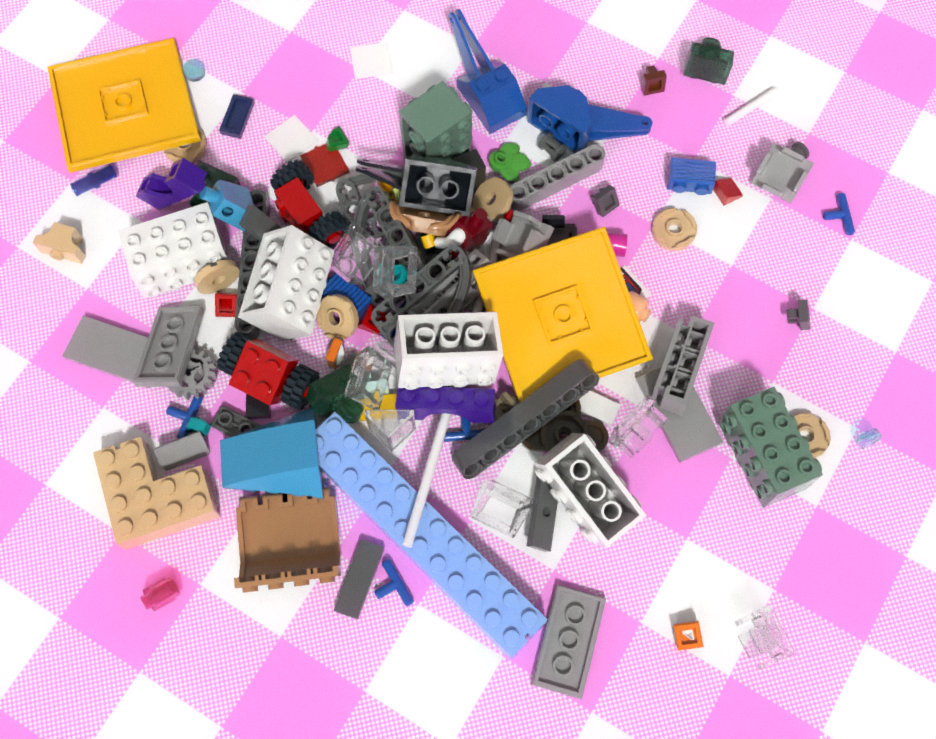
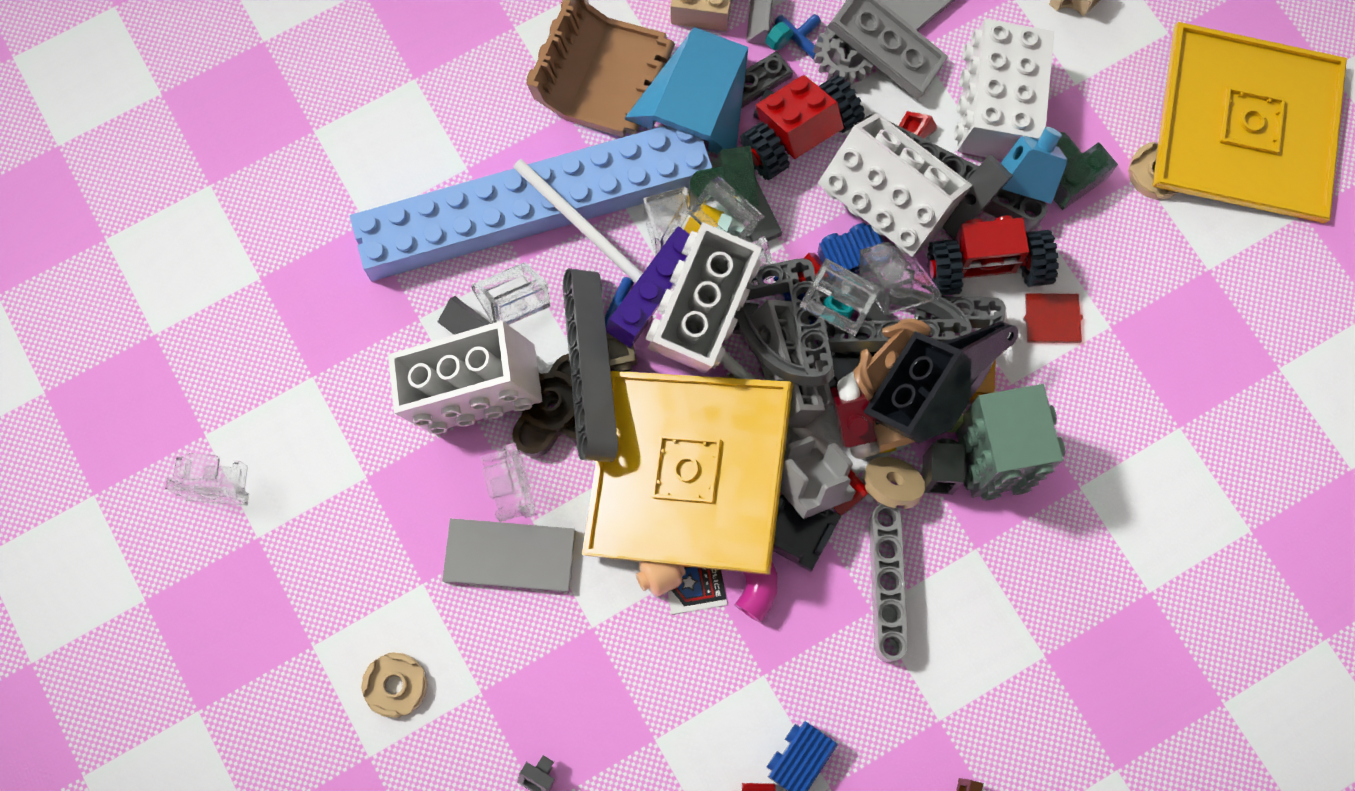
camera: 120 degrees right, 5 degrees up
(93, 180) = (1154, 51): clear blue pin -> none
(181, 183) = (1088, 112): dark purple arch -> none
(194, 70) = (1267, 225): clear light blue tile -> none
(216, 278) = (948, 121): tan tile -> none
(236, 116) = (1173, 246): dark blue tile -> none
(290, 138) = (1111, 296): white sticker -> none
(335, 354) = (788, 209): orange tile -> none
(337, 140) = (1078, 344): green tile -> none
(348, 317) = (829, 229): tan tile -> none
(359, 579) = (524, 122): dark grey tile -> none
(371, 60) = (1185, 447): white sticker -> none
(395, 584) = (499, 154): blue piece -> none
(488, 89) = (1068, 565): blue slope -> none
(511, 163) = (942, 544): bright green plate -> none
(552, 146) = (935, 603): dark grey bush -> none
(569, 642) = (338, 292): light grey tile -> none
(575, 122) = (946, 654): blue slope -> none
(599, 408) = (563, 466): white tile -> none
(605, 200) = (823, 625): dark grey tile -> none
(668, 239) = (741, 714): tan tile -> none
(685, 372) = (548, 584): light grey brick -> none
(688, 635) = (266, 412): orange tile -> none
(769, 446) = (396, 615): sand green brick -> none
(868, 438) = (344, 756): clear light blue tile -> none

